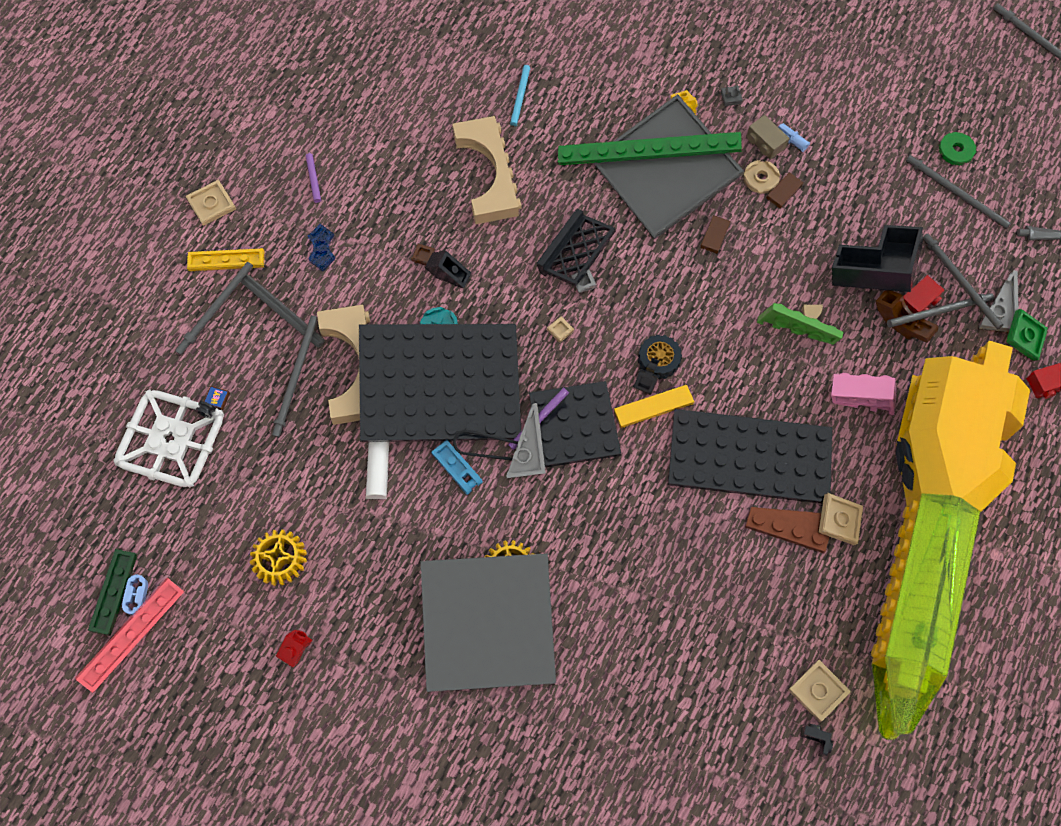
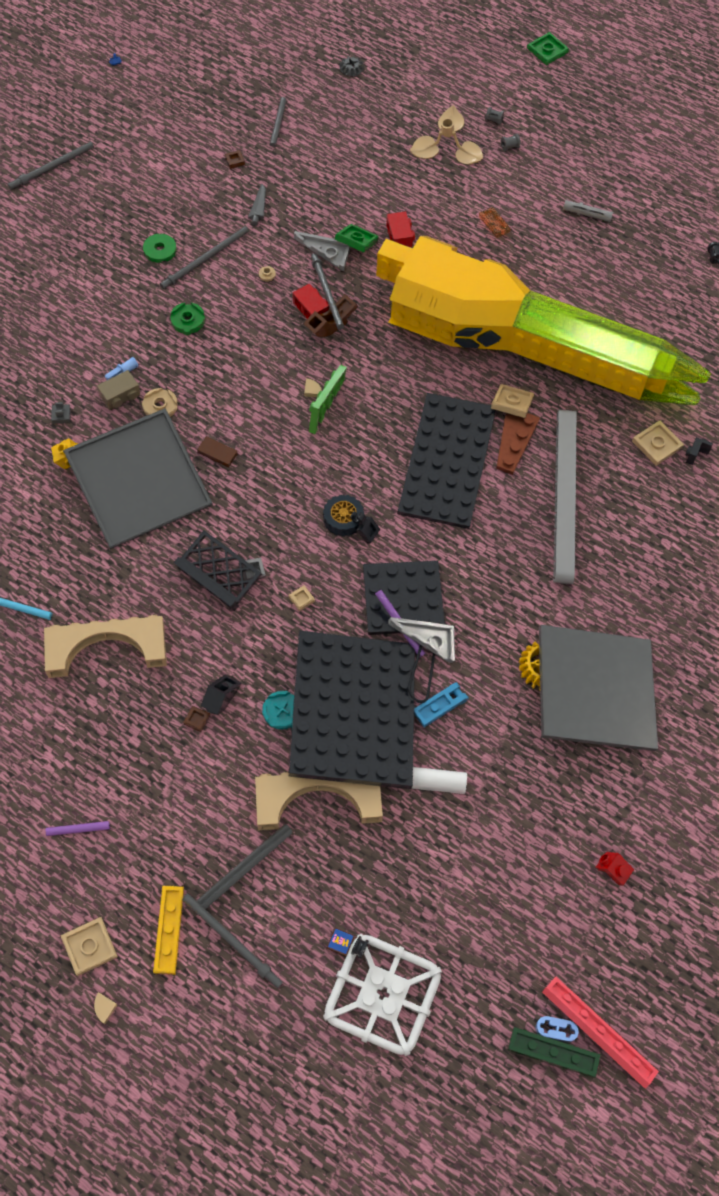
camera: 85 degrees left, 5 degrees down
(159, 221) = (104, 1007): none -> tan tile
(280, 421) = (376, 874): dark grey bar -> none
(286, 558) = (532, 878): yellow gear -> none
(321, 254) = (178, 823): clear blue tile -> none
(650, 148) = (117, 489): green plate -> none
(653, 406) = (392, 528): yellow tile -> none
(730, 582) = (566, 497): none -> light grey beam
(784, 190) = (179, 387): reddish brown tile -> none
(865, 391) = (398, 360): bright pink wedge -> none
(870, 194) = (189, 326): none -> green plate
(882, 267) = (282, 319): black piece -> none
(933, 245) = (258, 285): dark grey bar -> none
(952, 256) = (267, 273): none -> tan plate

